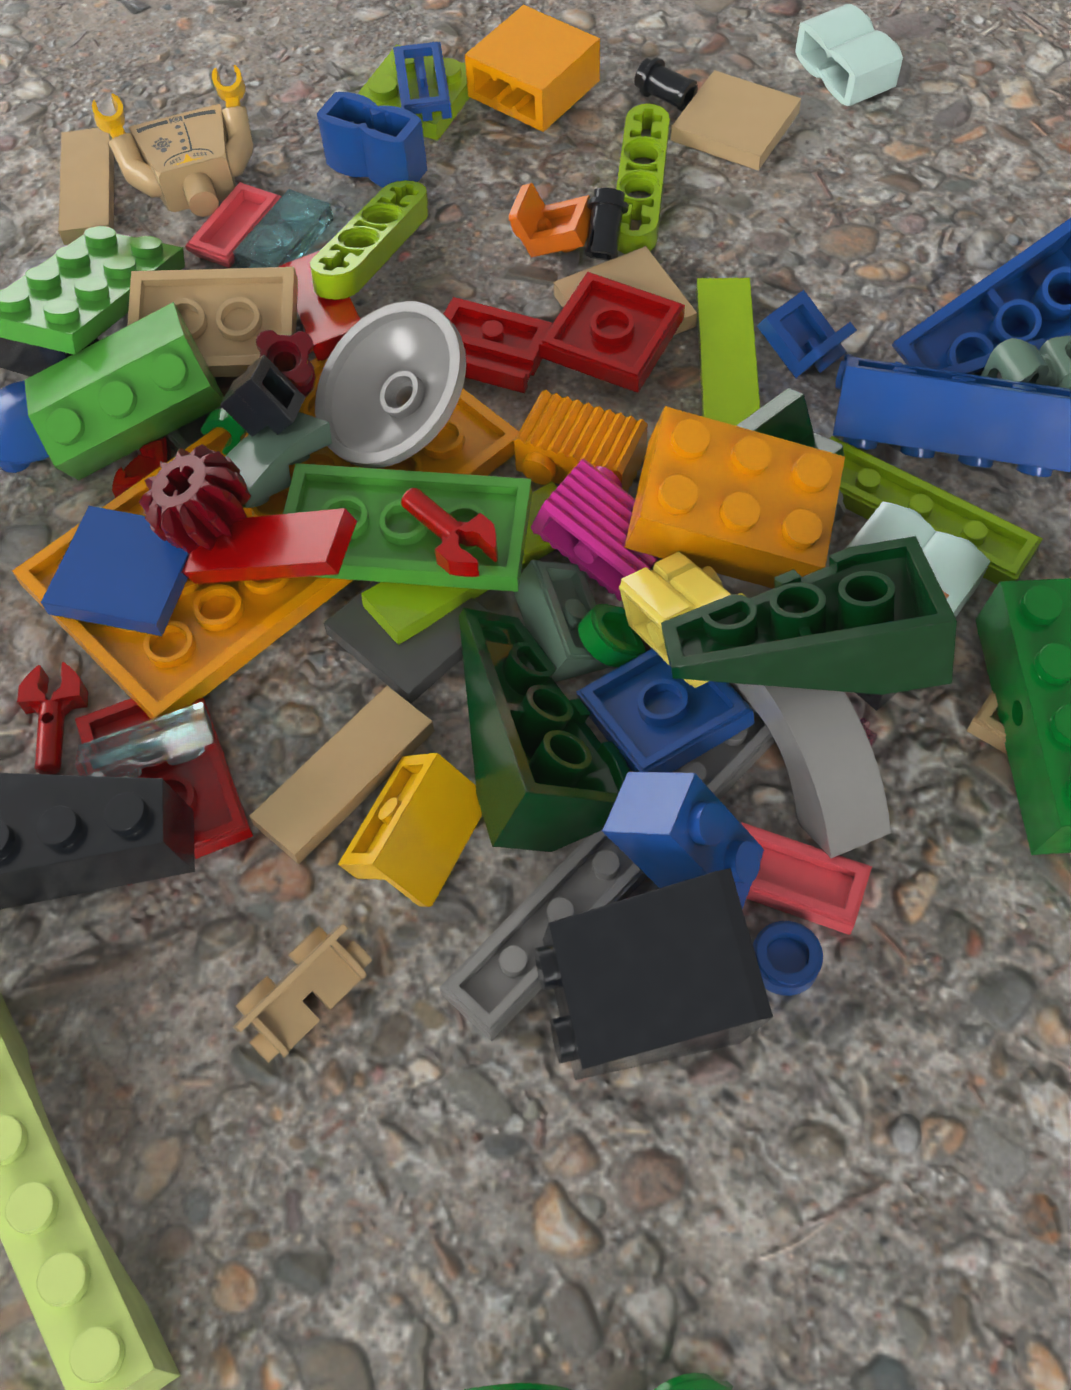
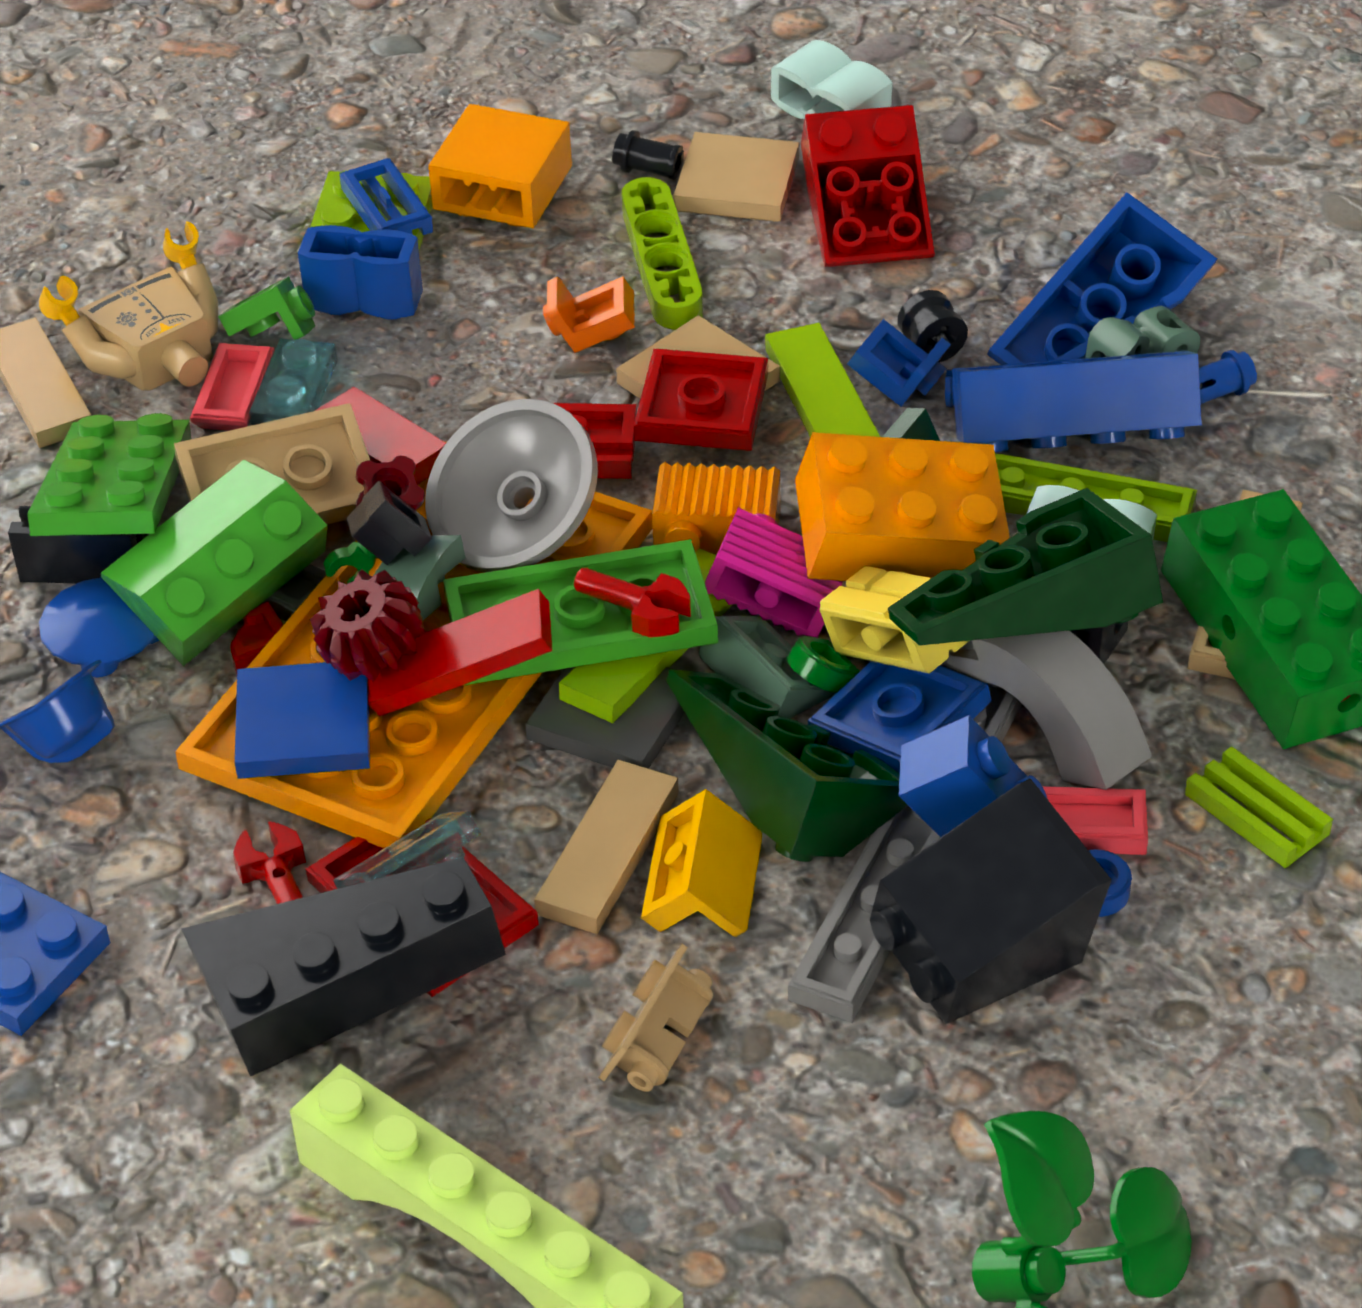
camera: 20 degrees left, 15 degrees down
(293, 157) = (260, 310): none -> bright green bracket
(369, 240) = (404, 366): lime beam -> none
(605, 223) = (650, 300): black pin -> none
(844, 153) = (866, 186): none -> red slope
(851, 298) = (929, 318): none -> black wheel
(1003, 906) = (1265, 802): none -> lime tile

